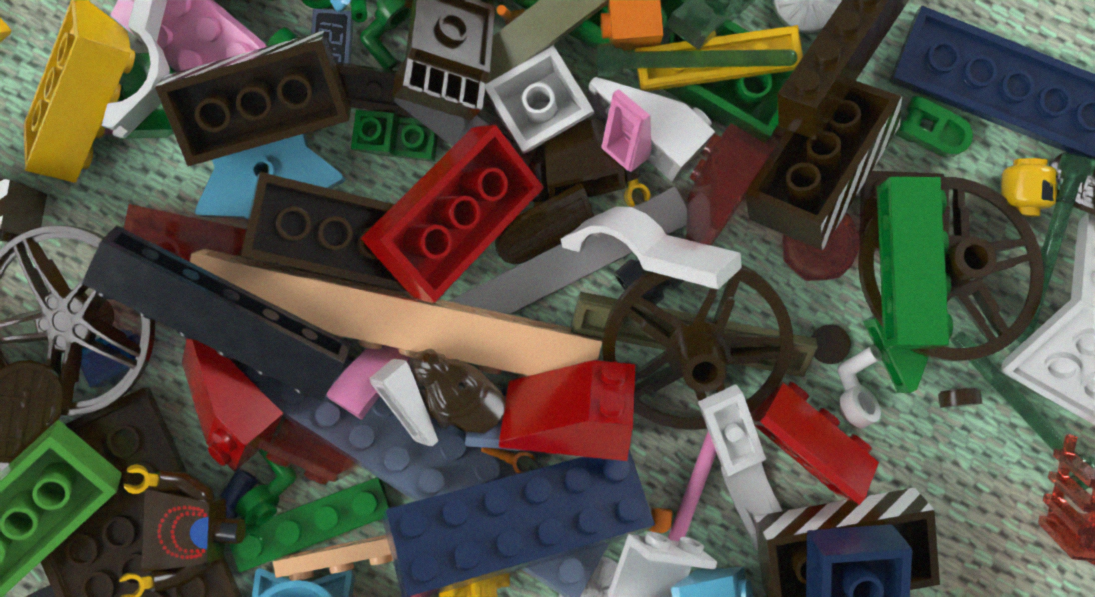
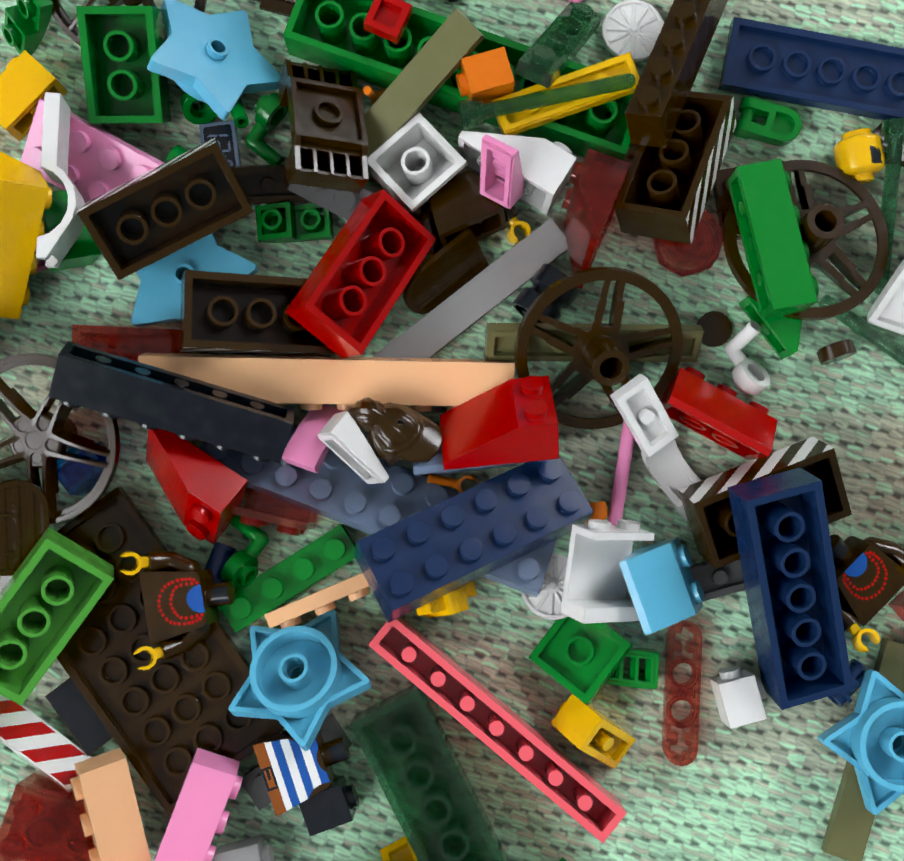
camera: 15 degrees left, 0 degrees up
(658, 251) = (548, 270): white piece -> none

